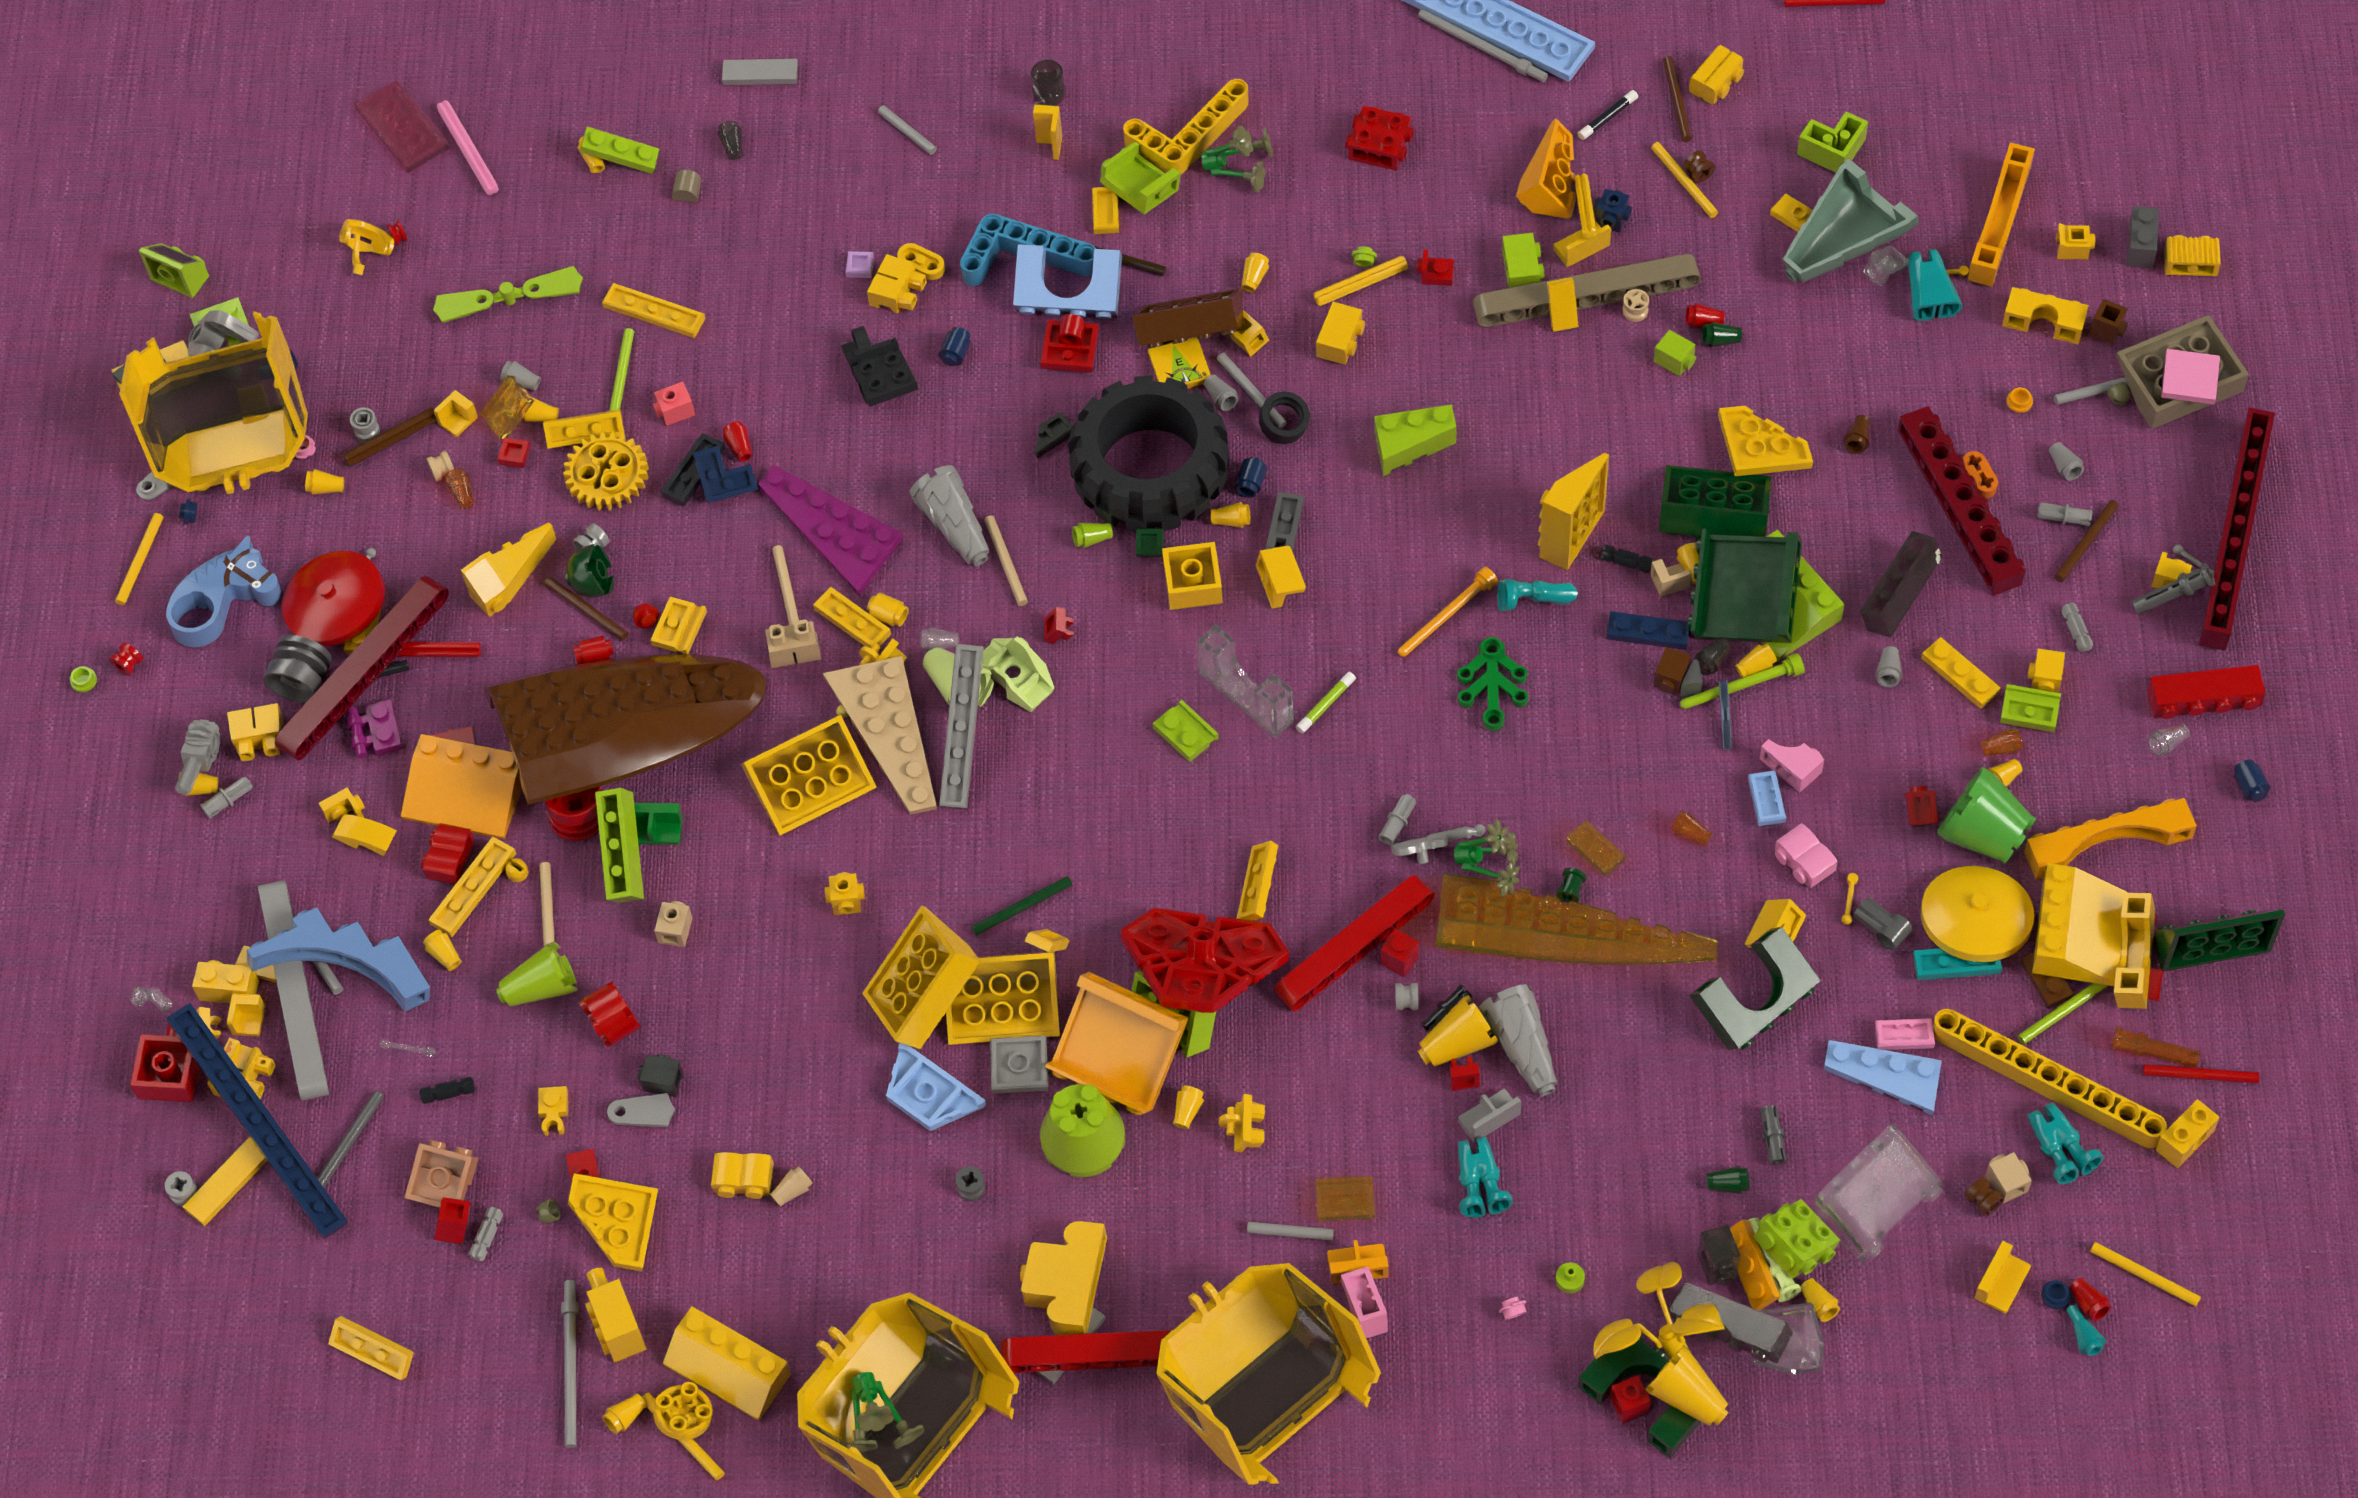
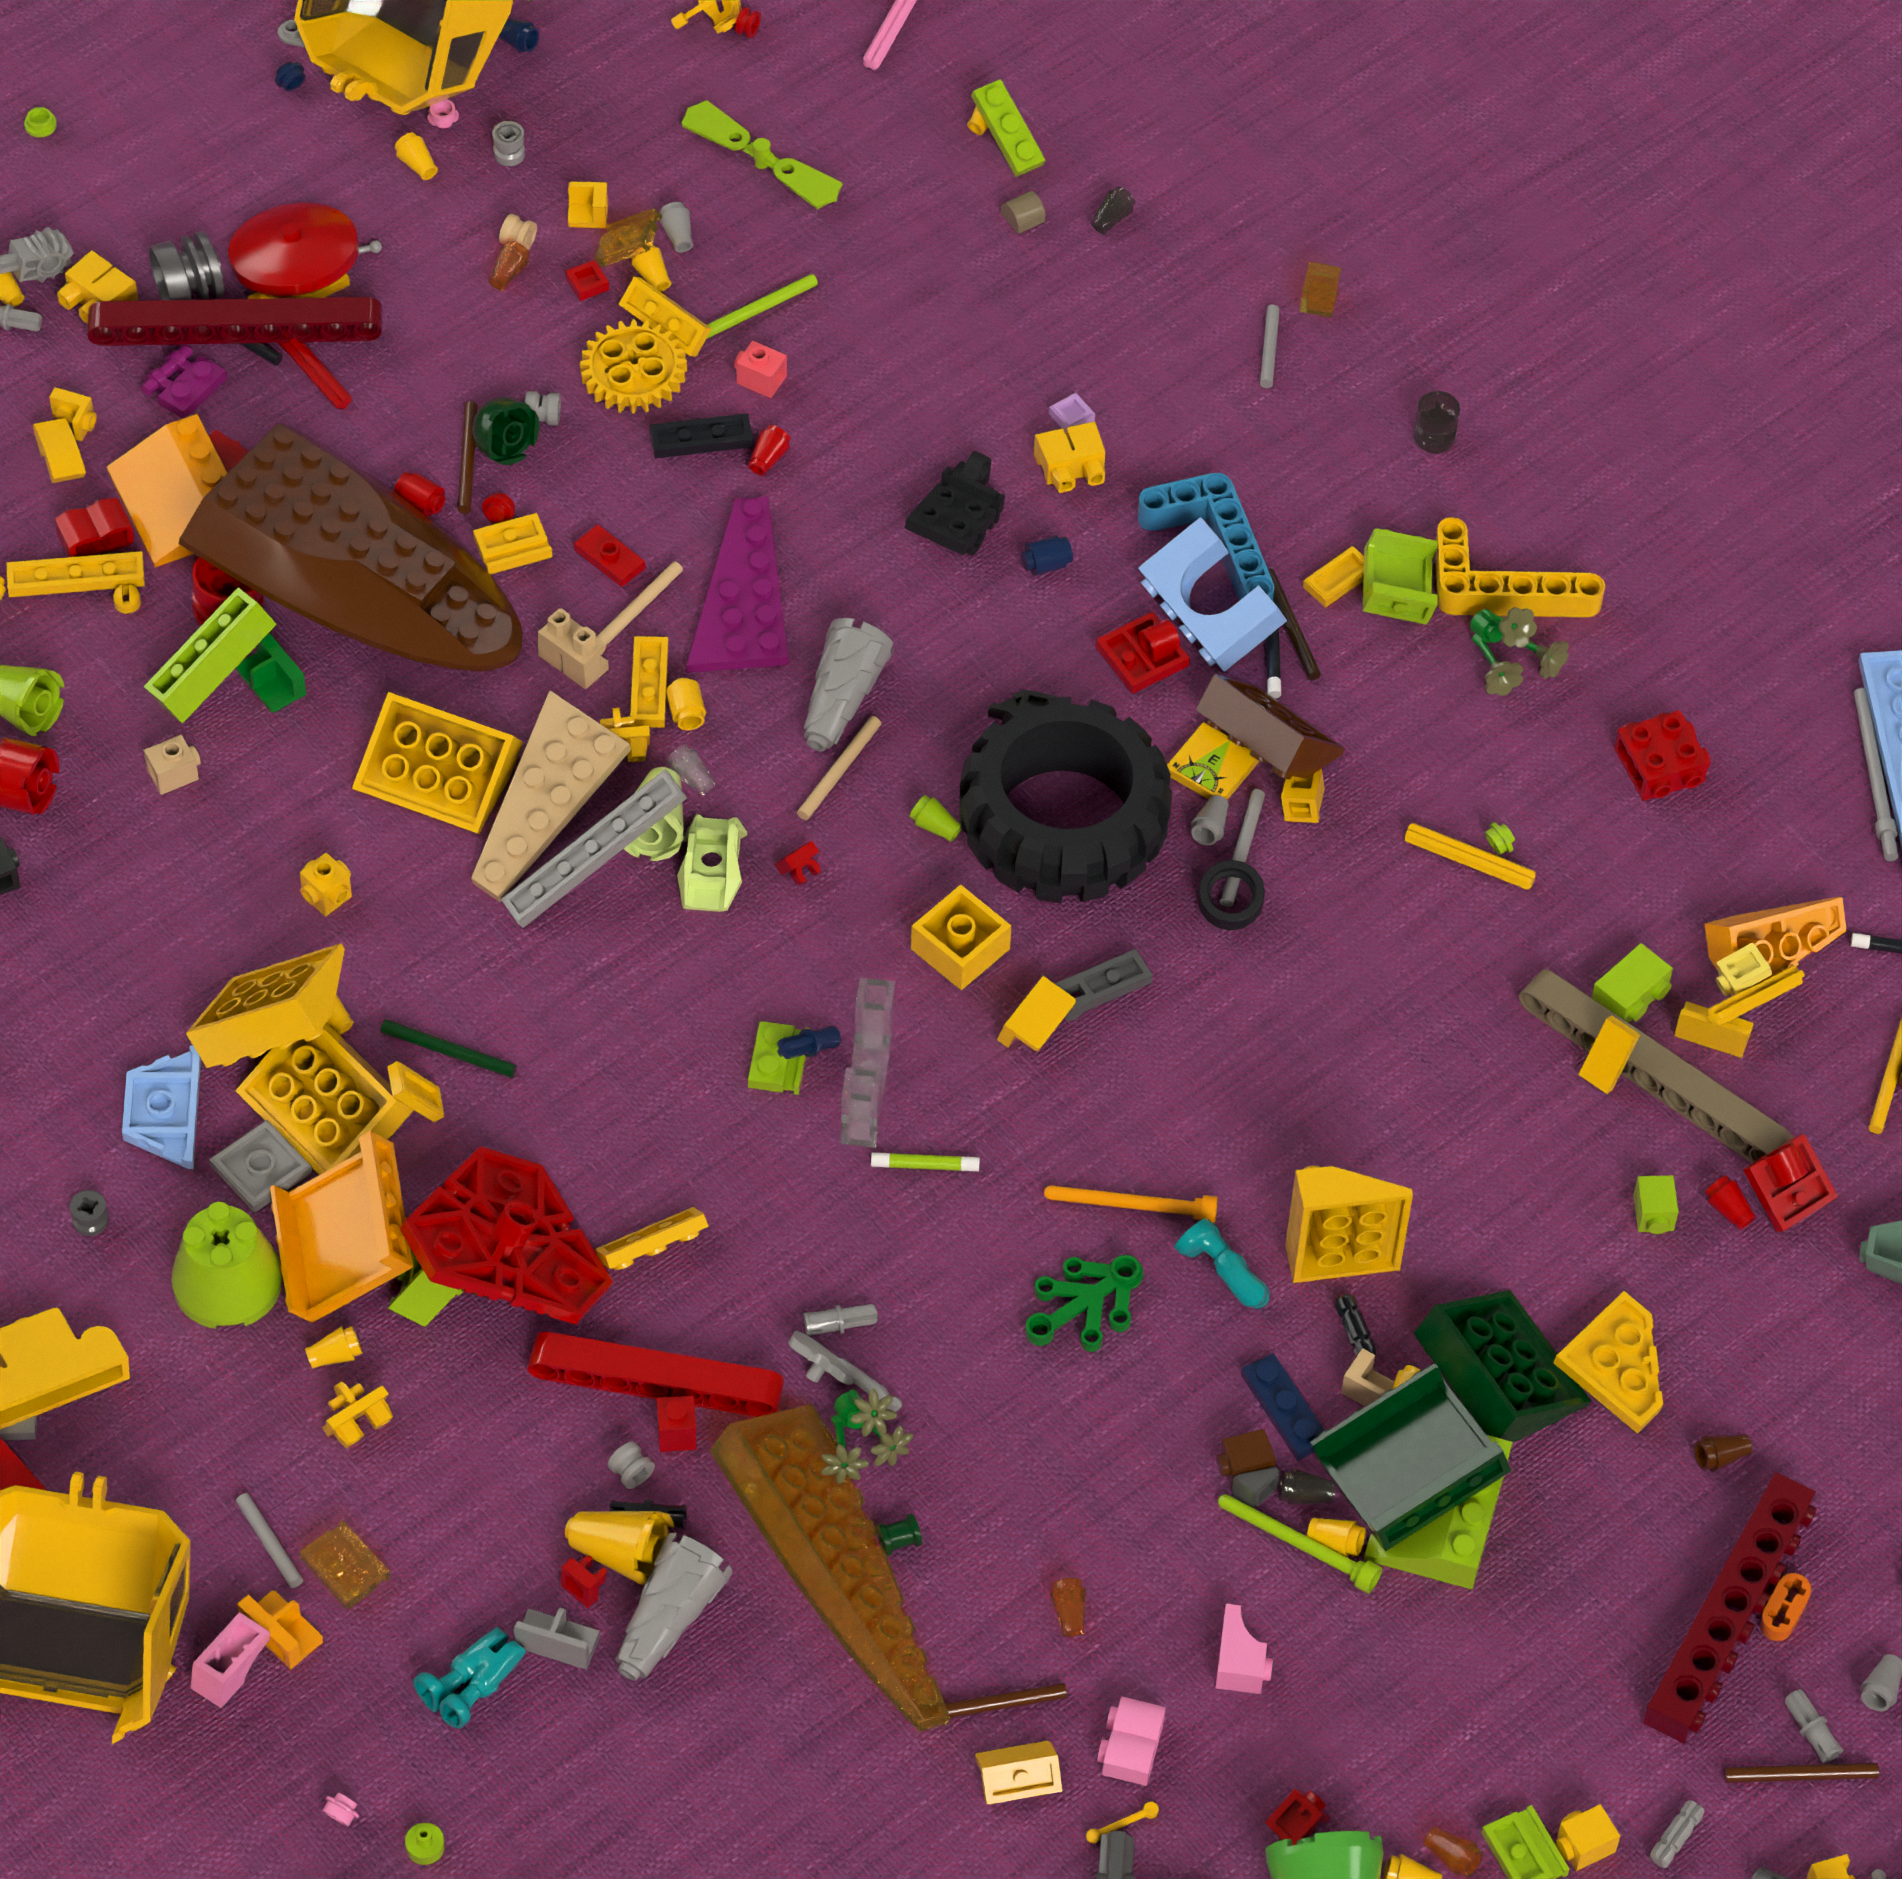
camera: 45 degrees right, 5 degrees down
(126, 659) = (88, 138): red wheel -> none
(139, 559) = (208, 76): yellow bar -> none
(214, 585) = (225, 150): medium blue animal -> none
(390, 437) = (513, 172): reddish brown axle -> none
(498, 576) = (437, 362): yellow wedge -> none
(546, 902) = (108, 650): tan bar -> none
(653, 310) = (857, 283): yellow tile -> none
(720, 483) = (704, 464): dark blue plate -> none
(735, 579) = (609, 555): none -> red plate
(760, 71) = (1218, 181): light grey tile -> none
(891, 76) = (1320, 289): none -> clear yellow panel
(923, 260) = (1122, 463): yellow plate -> none
(1048, 127) = (1379, 460): yellow panel -> none
(1140, 287) = (1273, 664): none -> black bar
(1149, 542) = (971, 874): dark green plate -> none
(1195, 705) = (809, 1042): none -> dark blue axle
(1232, 515) = (1074, 930): yellow cone -> none
(1250, 477) = (1132, 913): dark blue brick -> none
(1254, 270) = (1386, 753): yellow cone -> none
(1339, 333) = (1380, 876): yellow brick -> none
(1413, 434) = (1318, 1024): lime wedge -> none
(1435, 270) = (1548, 914): red bracket -> none
(1567, 200) = (1741, 970): none -> light yellow bracket
(1595, 848) = (965, 1529): clear yellow plate -> none
(1612, 209) = (1780, 1026): dark blue brick -> none
(1632, 299) = (1690, 1123): tan wheel -> none
(1719, 277) = (1790, 1183): none -> red plate
(1719, 334) = (1723, 1233): dark green cone -> none
(1724, 902) = (1006, 1700): none -> reddish brown bar
(1725, 715) = (1243, 1548): sand blue piece -> none
(1766, 798) = (1174, 1656): light blue plate -> none
(1790, 978) = (861, 1806): arch -> none
(1889, 668) = (1447, 1673): light grey cone -> none
(1901, 584) = (1561, 1613): clear smoke brick -> none
(1960, 673) = (1510, 1752): yellow plate -> none

